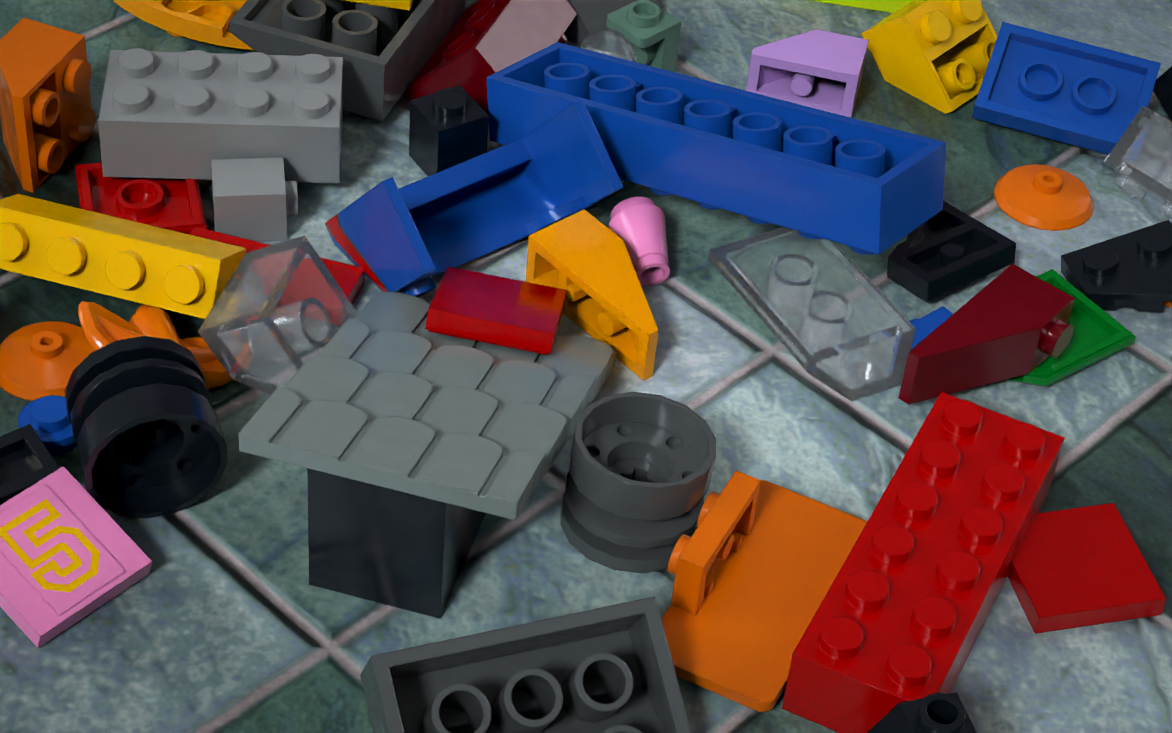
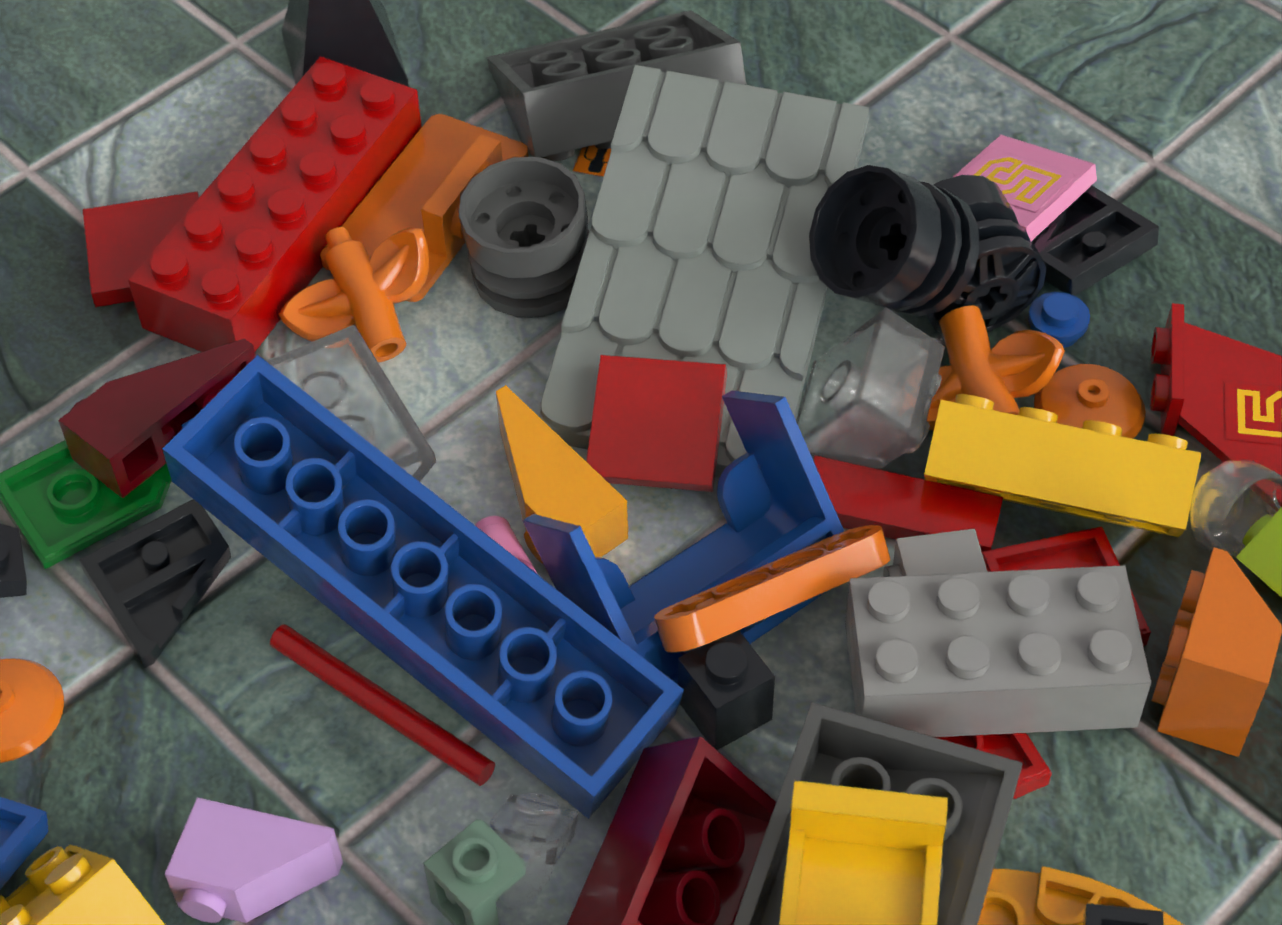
camera: 175 degrees left, 10 degrees up
(240, 326) = (893, 241): none -> black wheel
(400, 154) = (771, 588): none -> orange beam
(830, 478) = (362, 290): none -> orange plant

